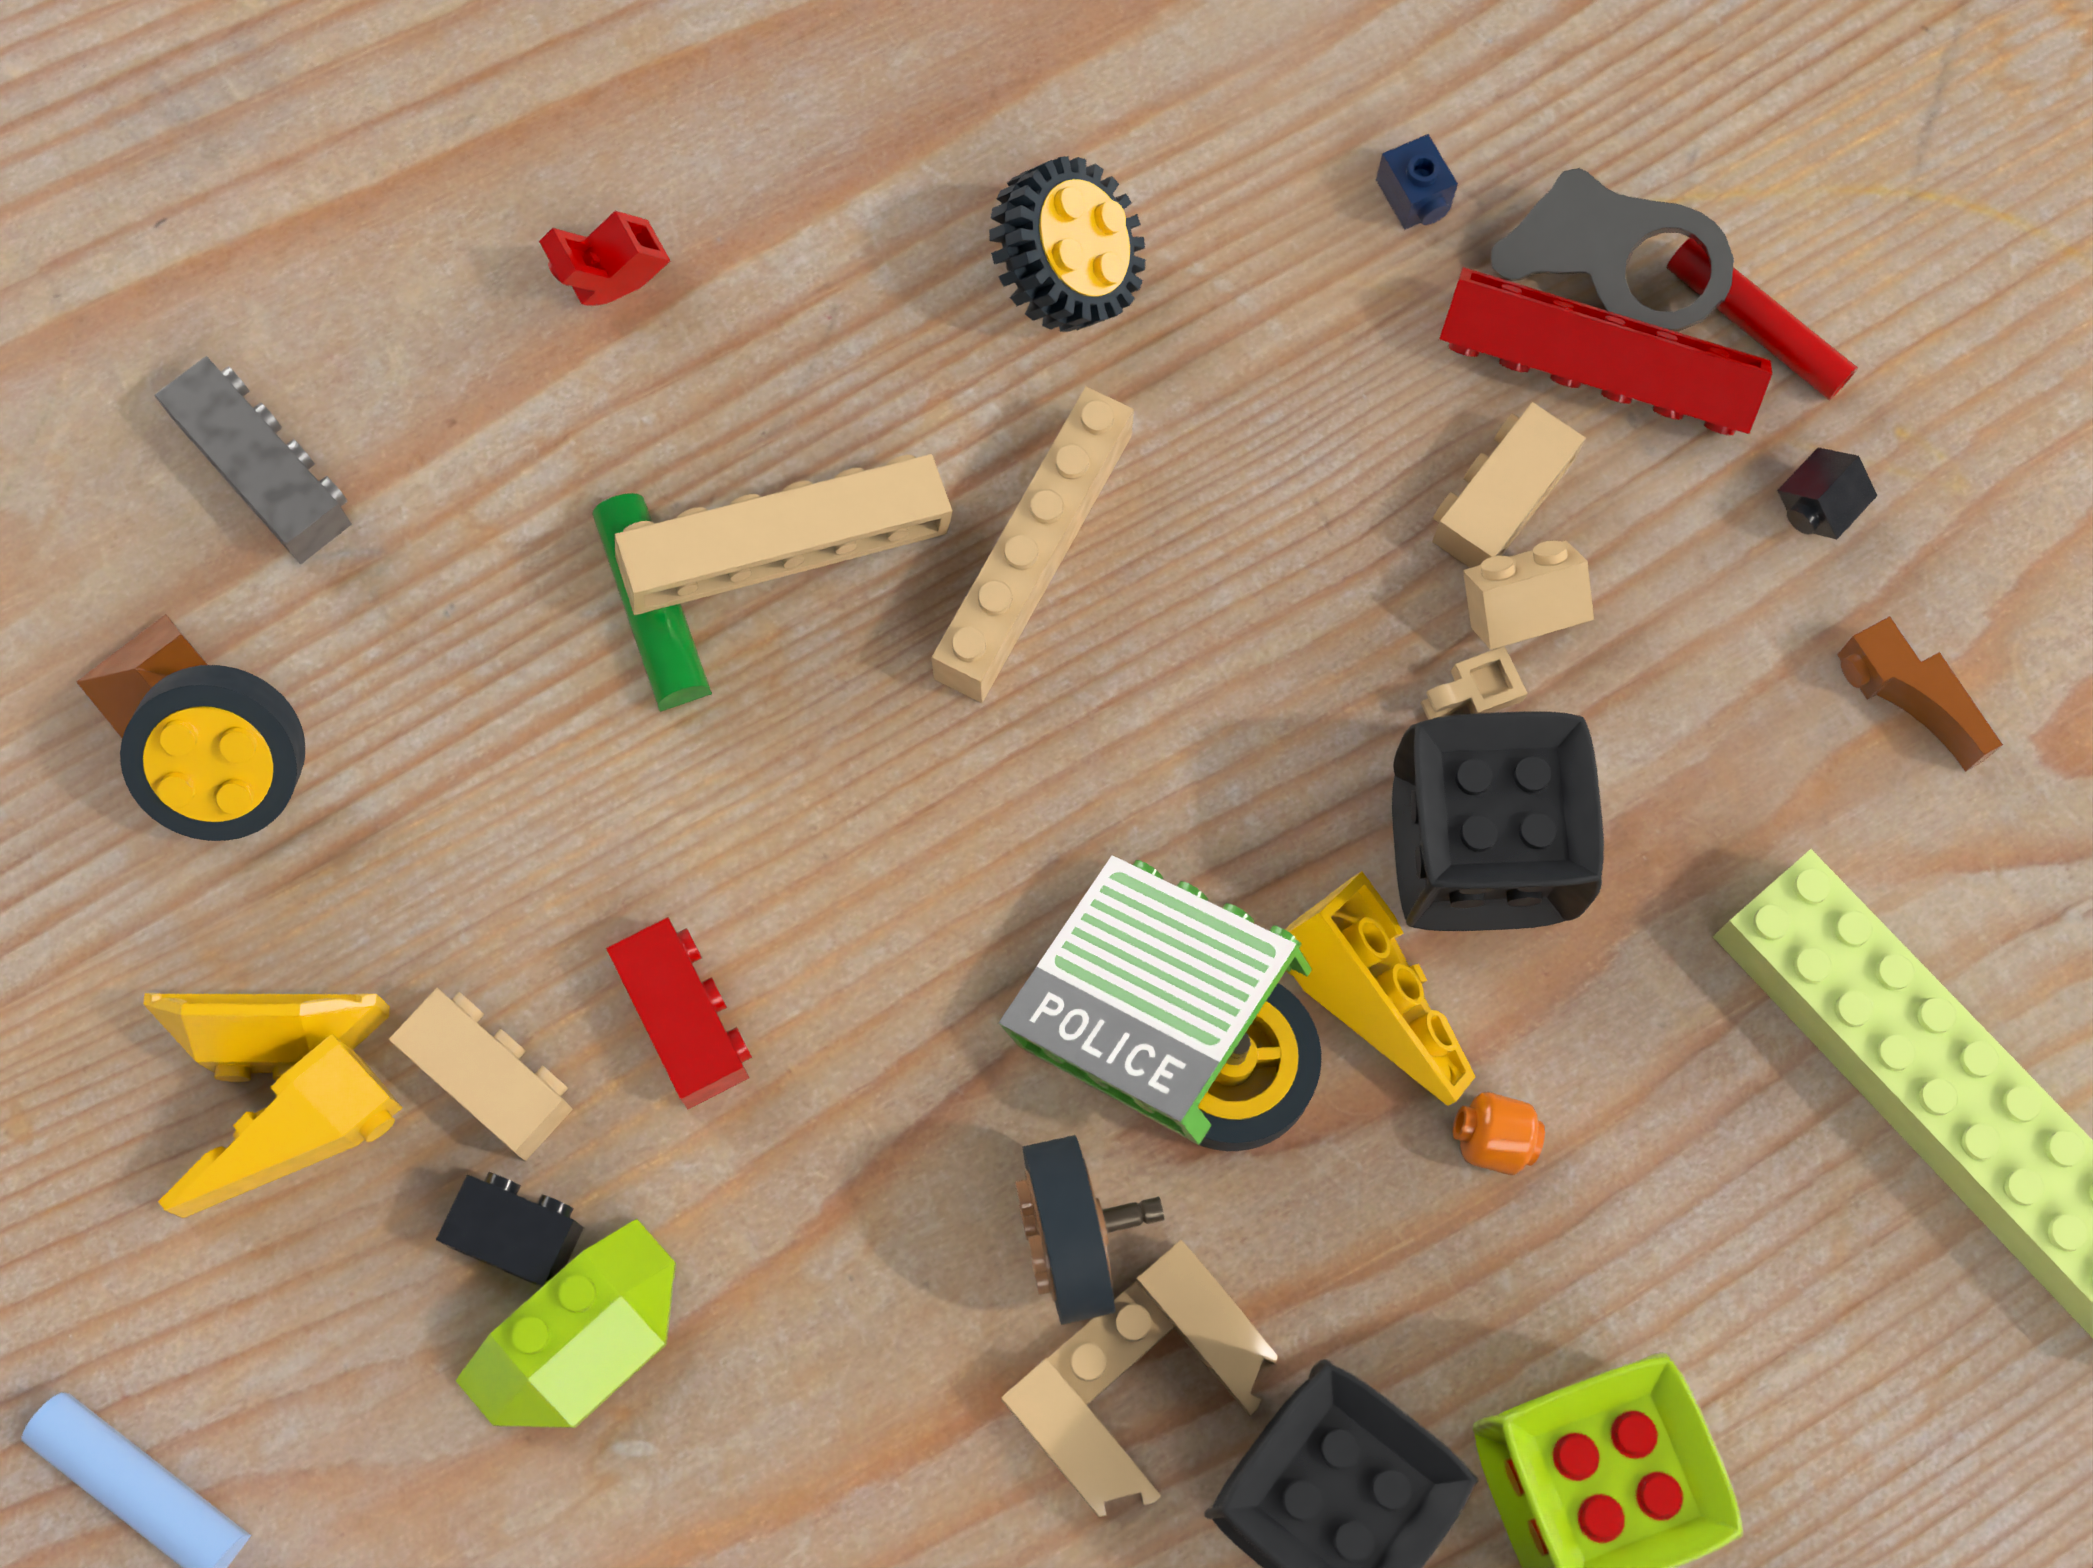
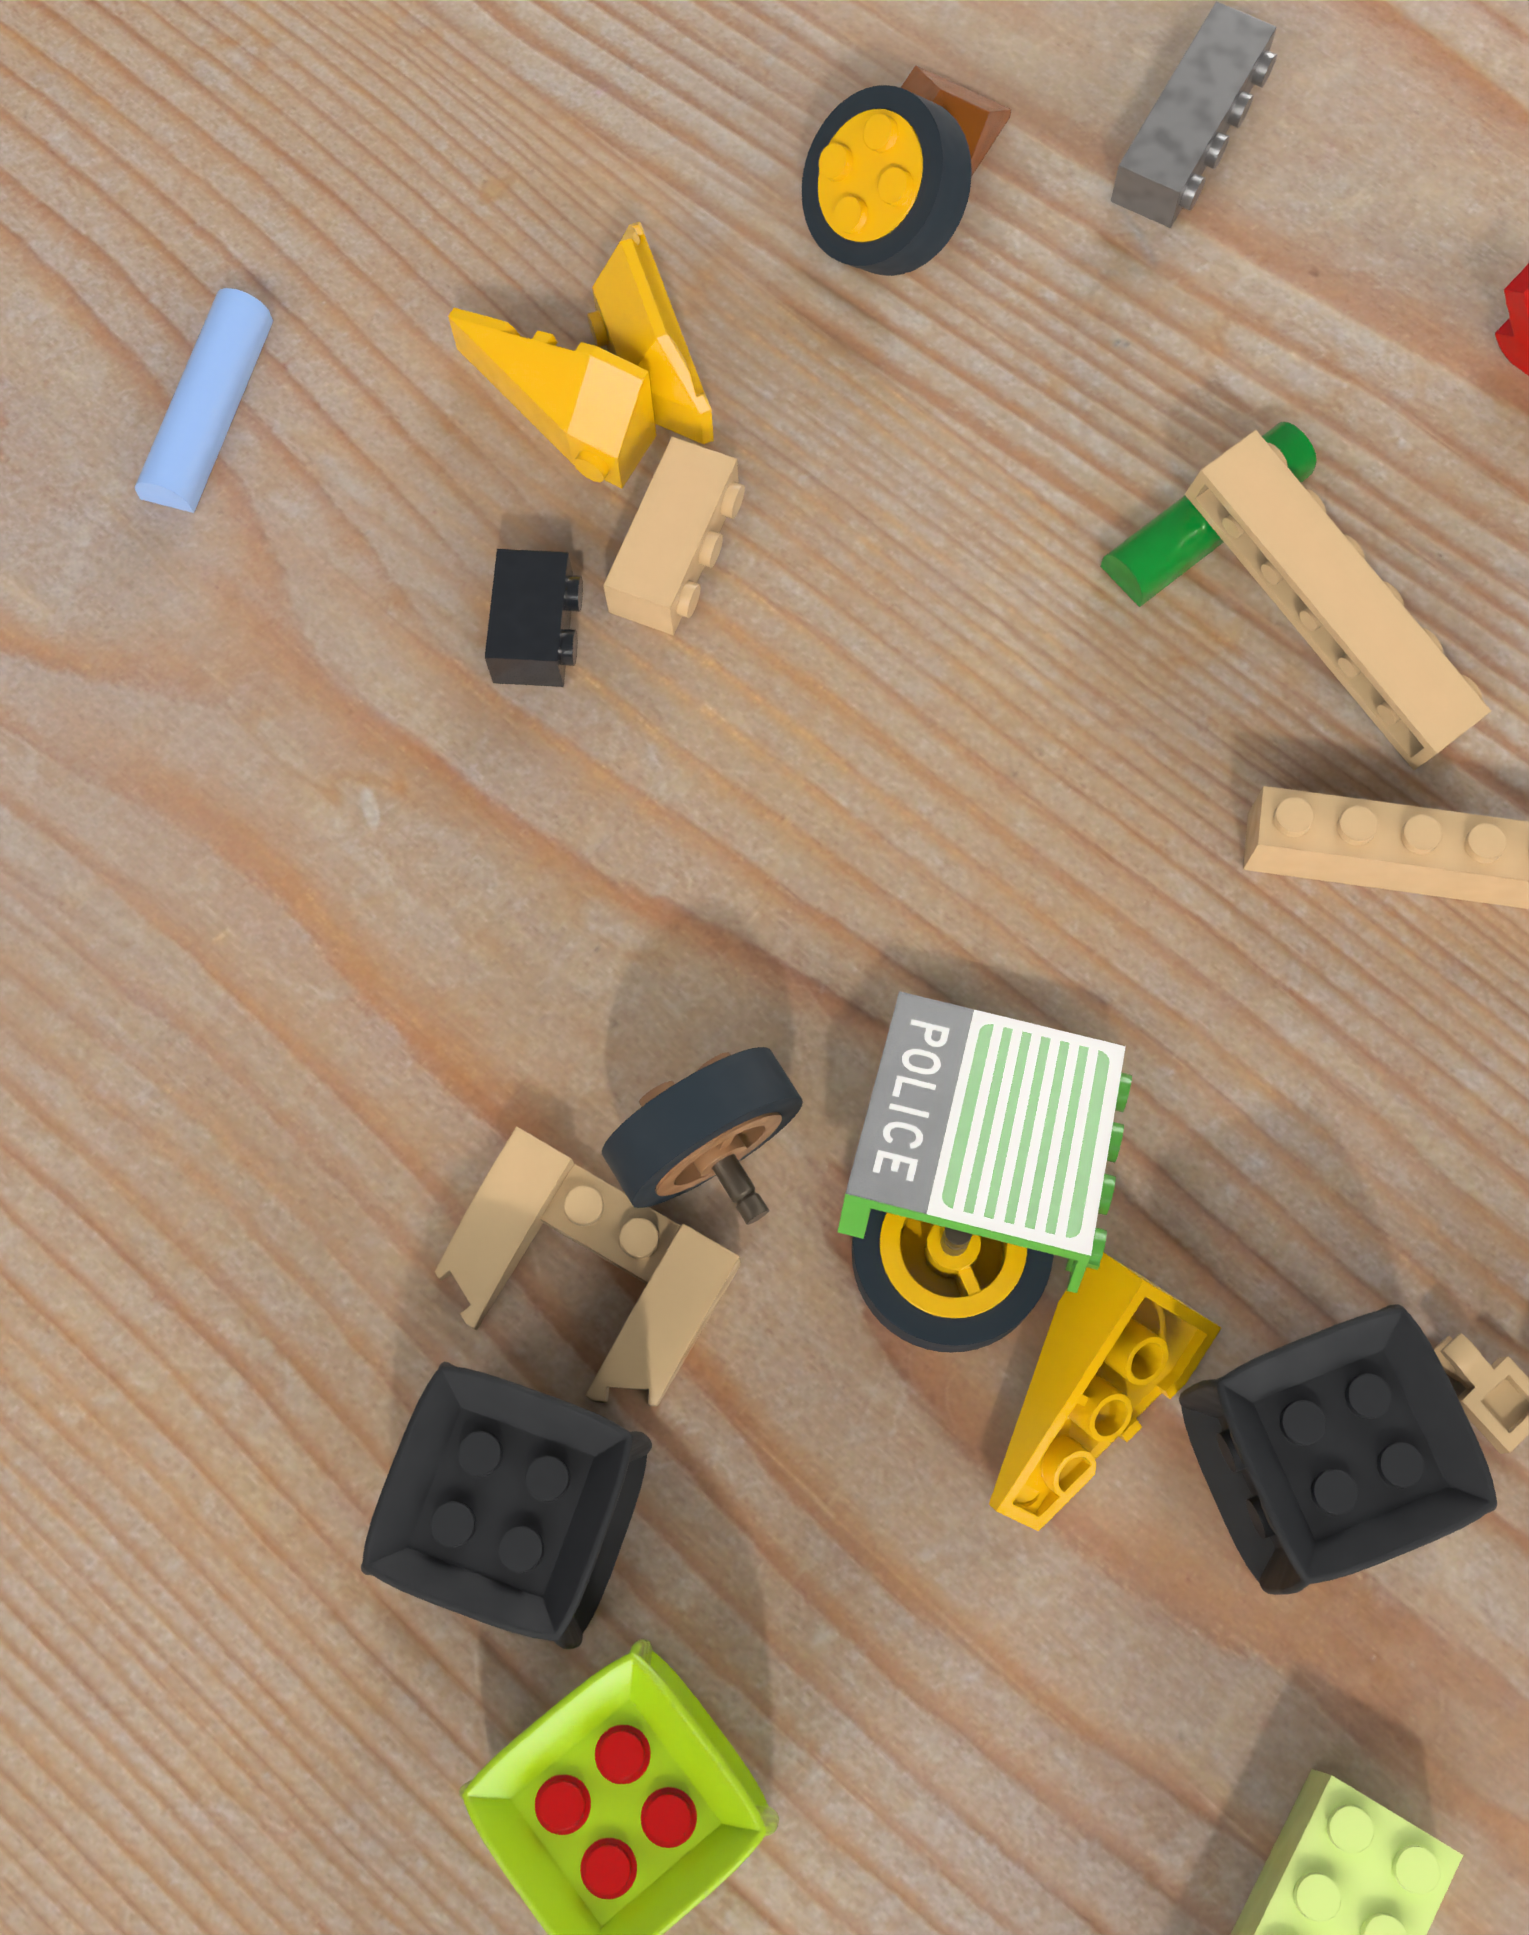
camera: 75 degrees right, 0 degrees up
(576, 1335) = (460, 713): lime wedge -> none
(680, 1012) = (798, 688): red brick -> none
(1499, 1133) = (980, 1574): orange head -> none

